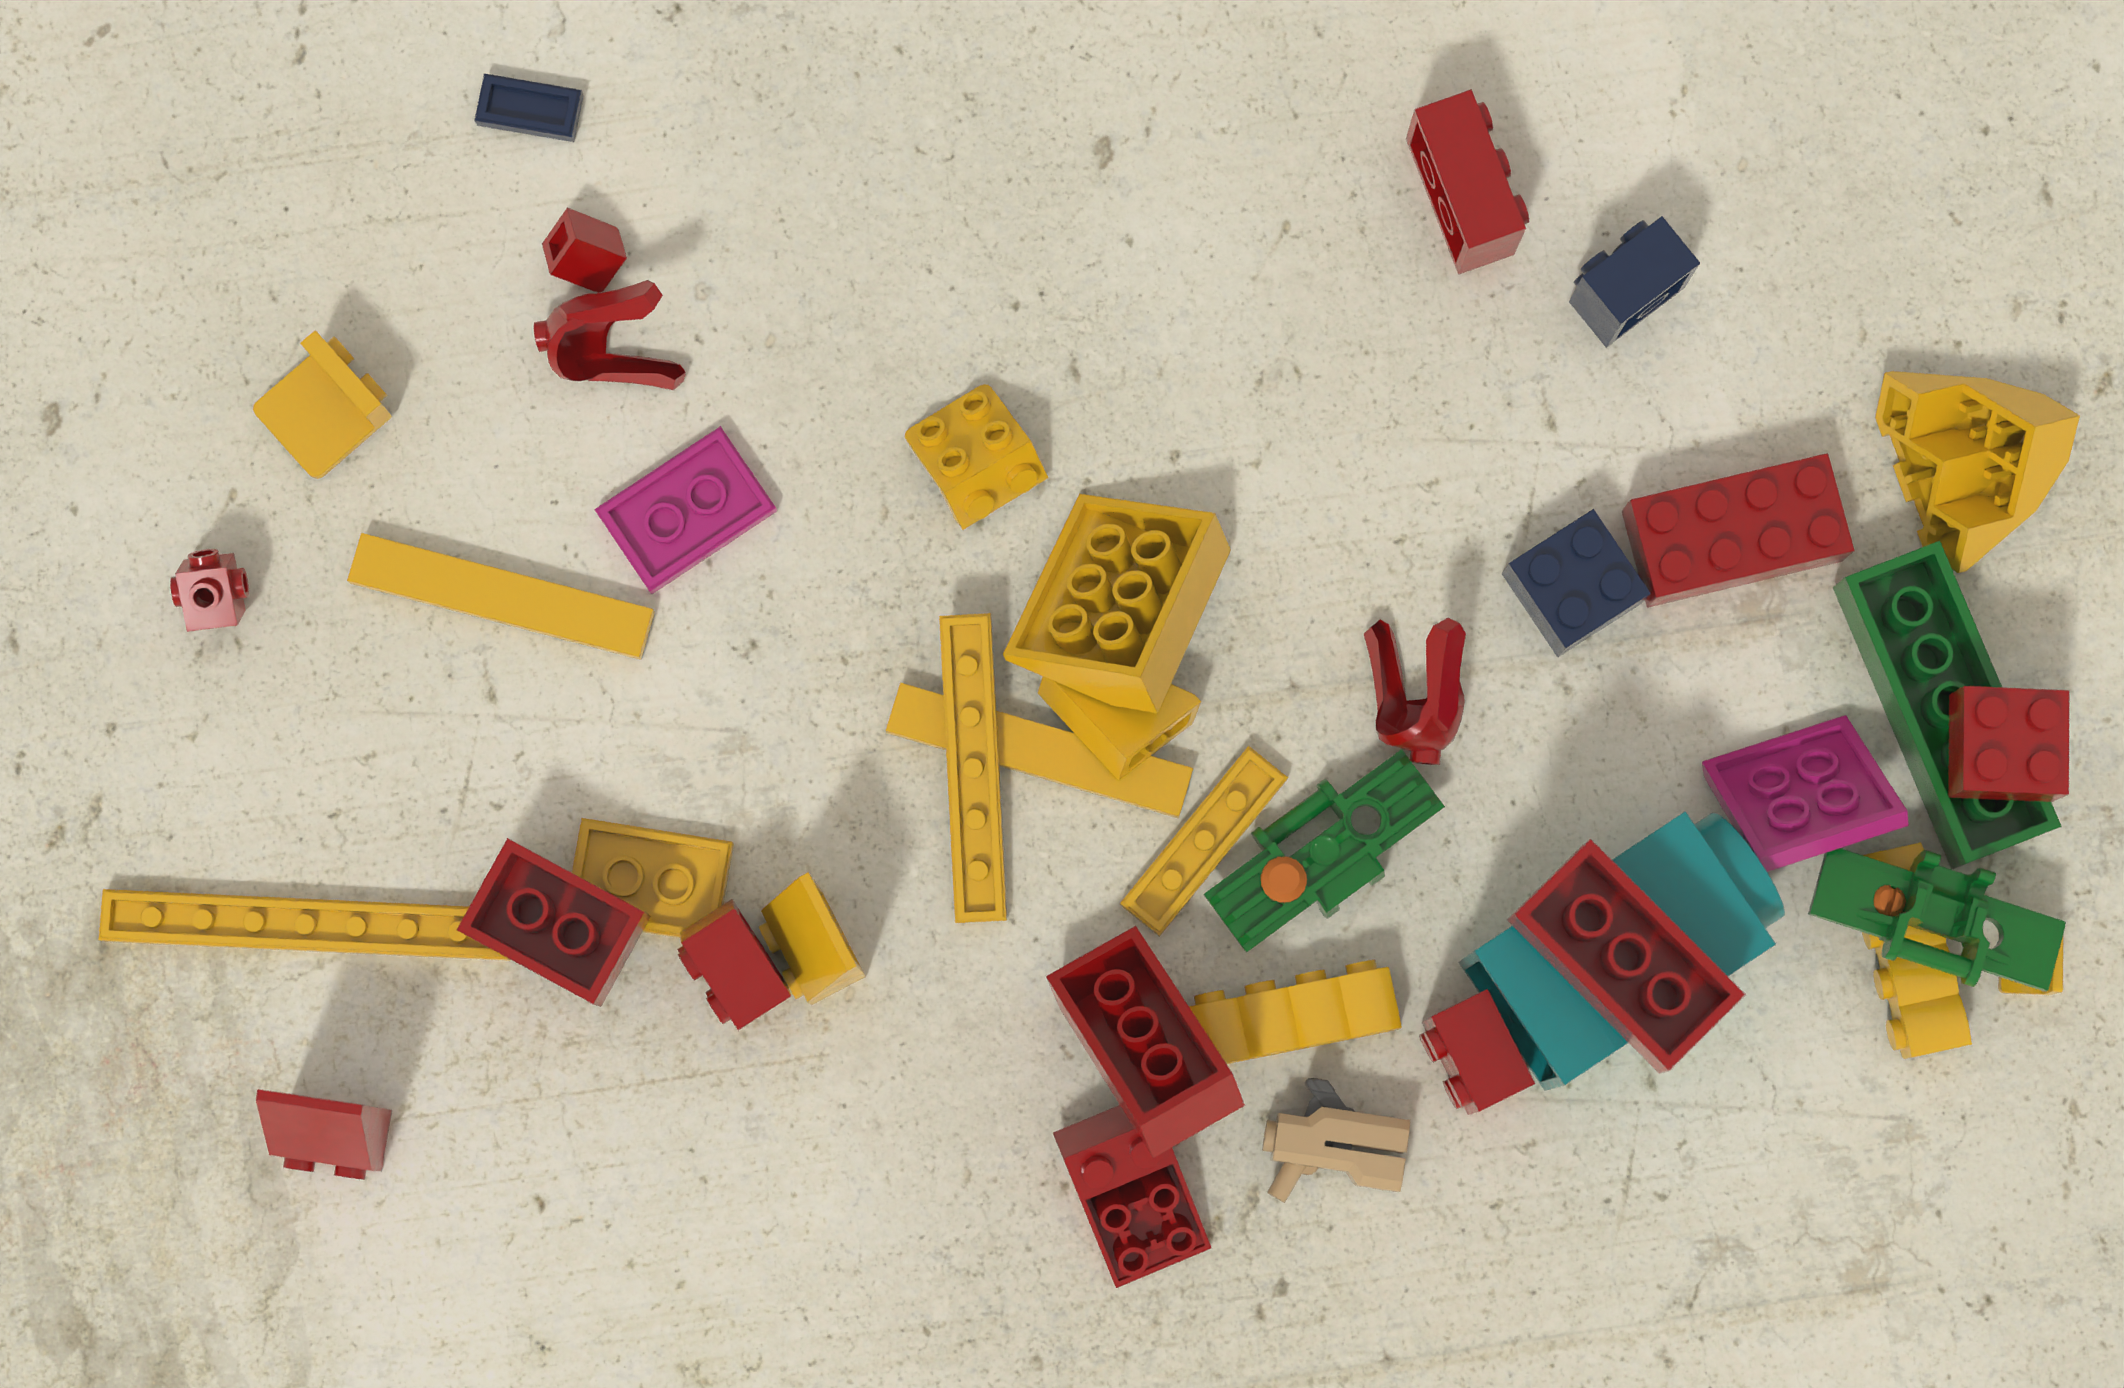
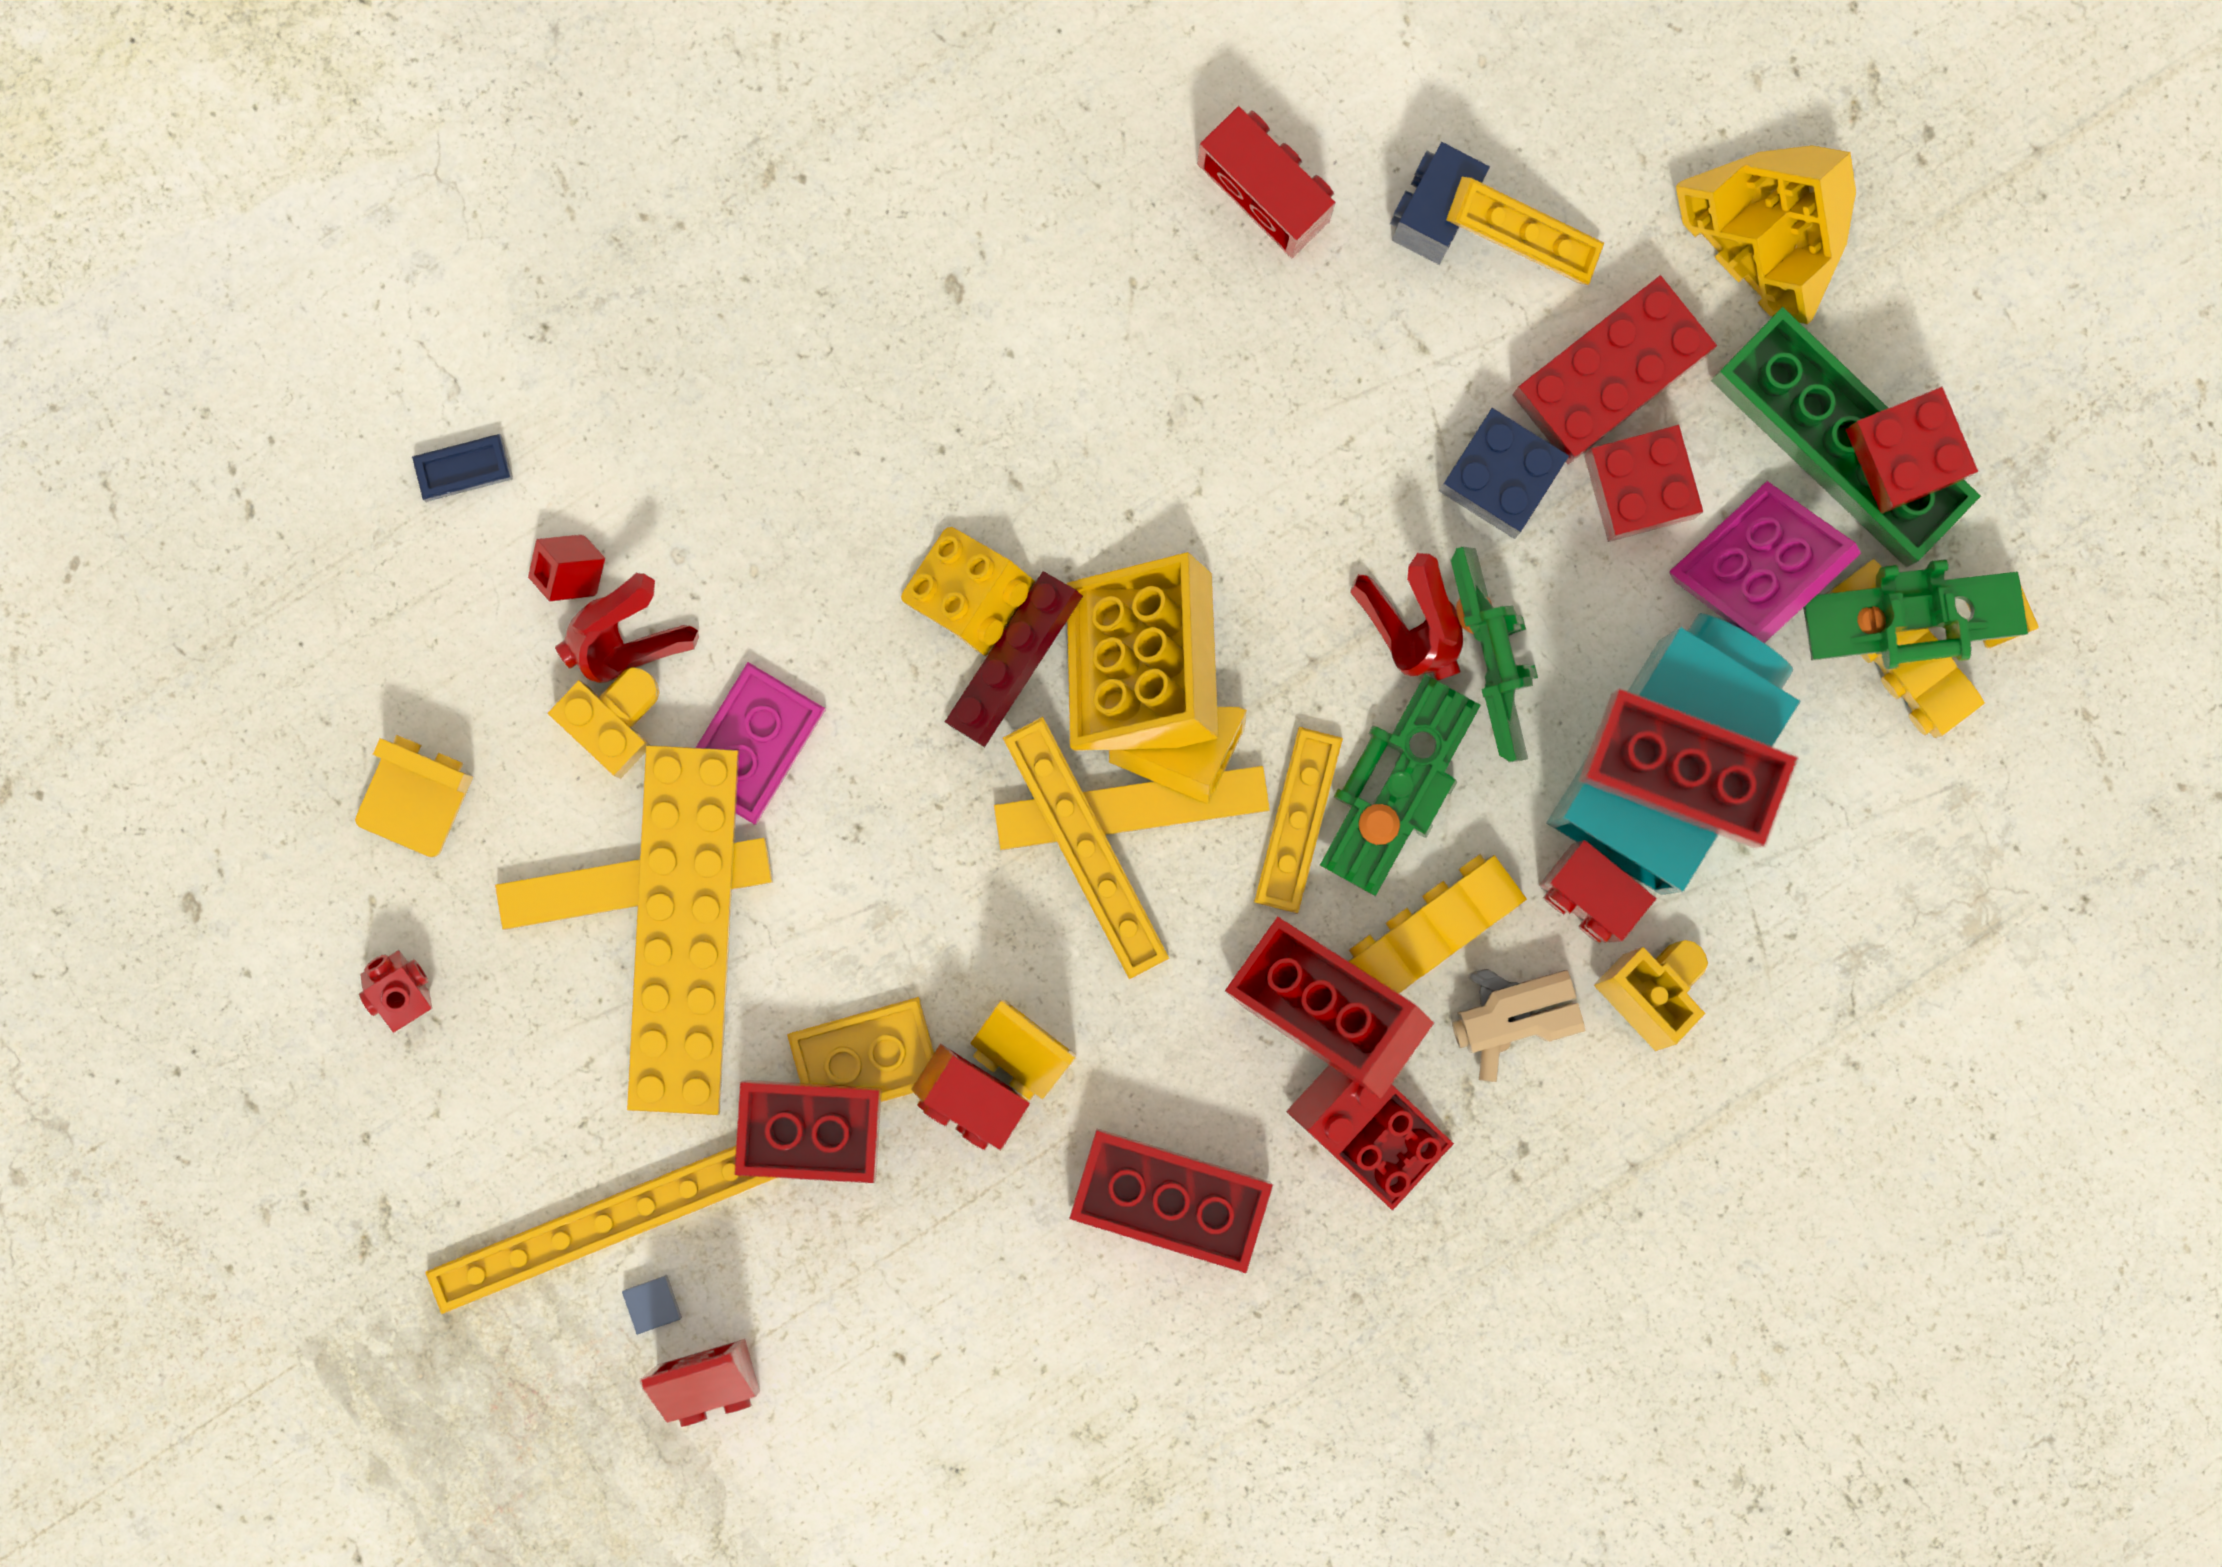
camera: 30 degrees left, 5 degrees up
(314, 1030) = (651, 1304): none -> sand blue tile
(526, 664) = (683, 930): none -> yellow plate
(551, 420) = (606, 721): none -> yellow brick
(890, 1167) = (1171, 1200): none -> red brick
(989, 544) = (1013, 659): none -> dark red plate
(1490, 1185) = (1654, 991): none -> yellow brick
(1493, 733) = (1493, 629): none -> green piece
(1708, 346) = (1525, 231): none -> yellow tile
(1716, 658) = (1643, 483): none -> red brick

